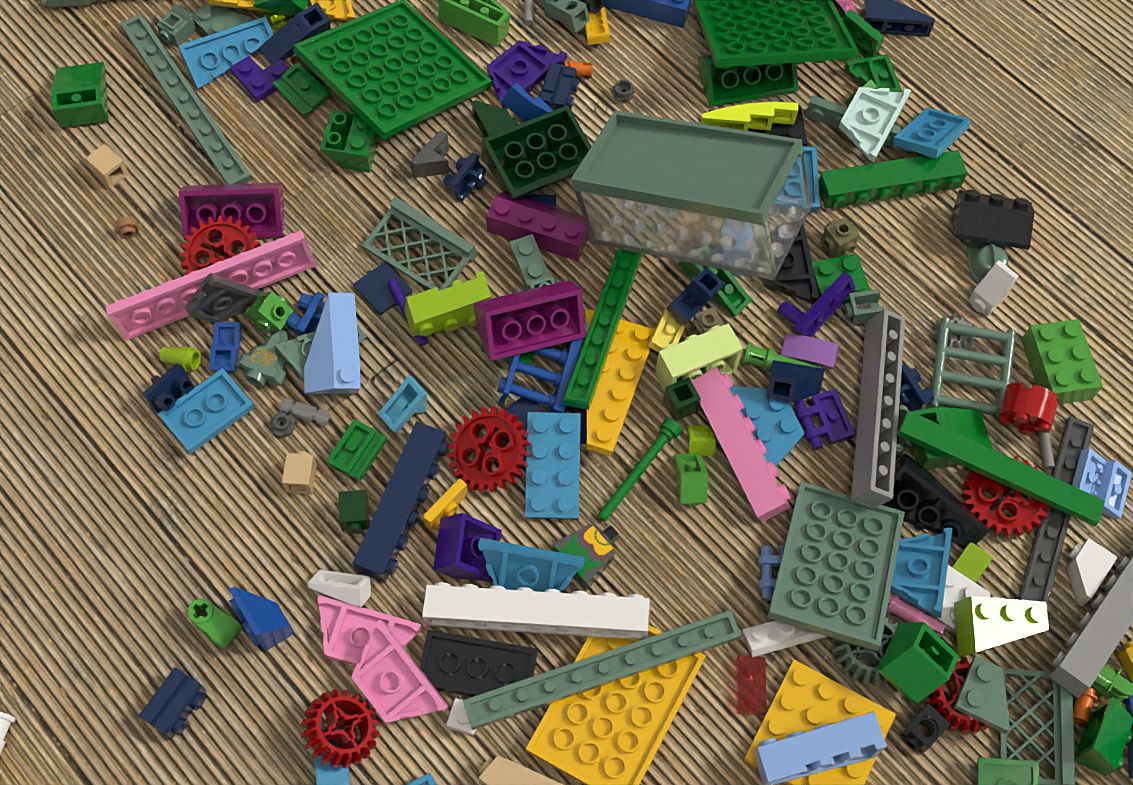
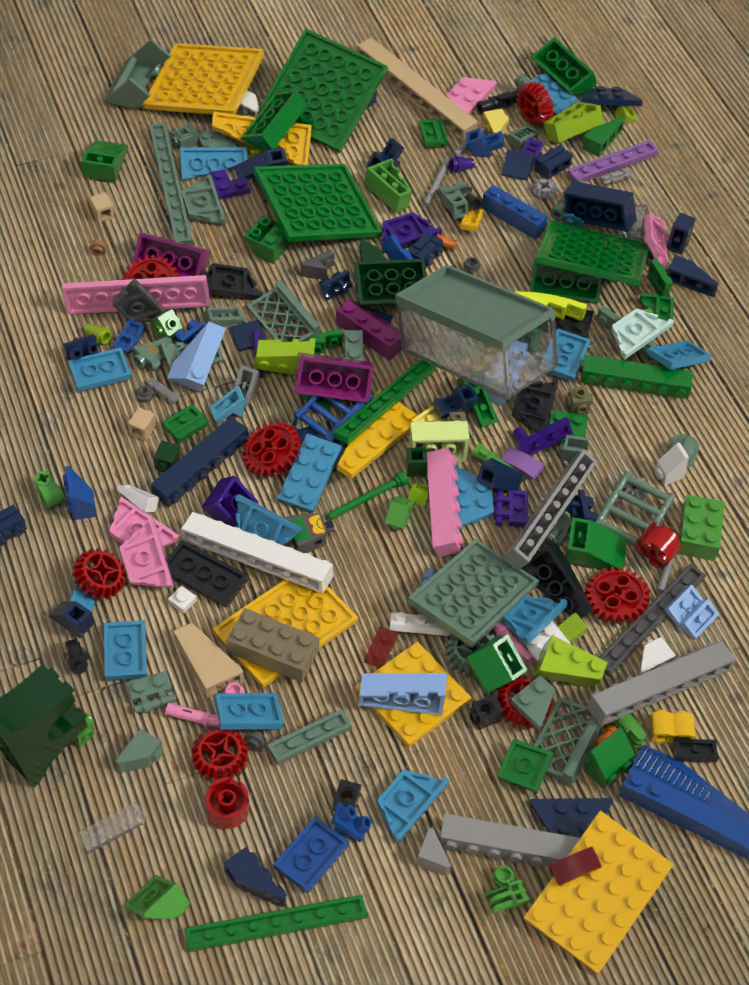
camera: 20 degrees right, 10 degrees down
(240, 113) = (203, 202): none -> sand green wing
(301, 89) = (250, 199): green plate -> none
(326, 283) = (218, 316): none -> sand green slope
(328, 219) = (231, 282): none -> black wing
(413, 362) = (248, 382): none -> light grey slope
(446, 505) = (235, 469): yellow plate -> none
(493, 258) = (327, 339): none -> green slope
(601, 669) = (284, 598): sand green plate -> none
(621, 747) = (273, 644): none -> dark tan brick
(993, 219) = (695, 421): black slope -> none
(1001, 468) = (617, 572): green tile -> none

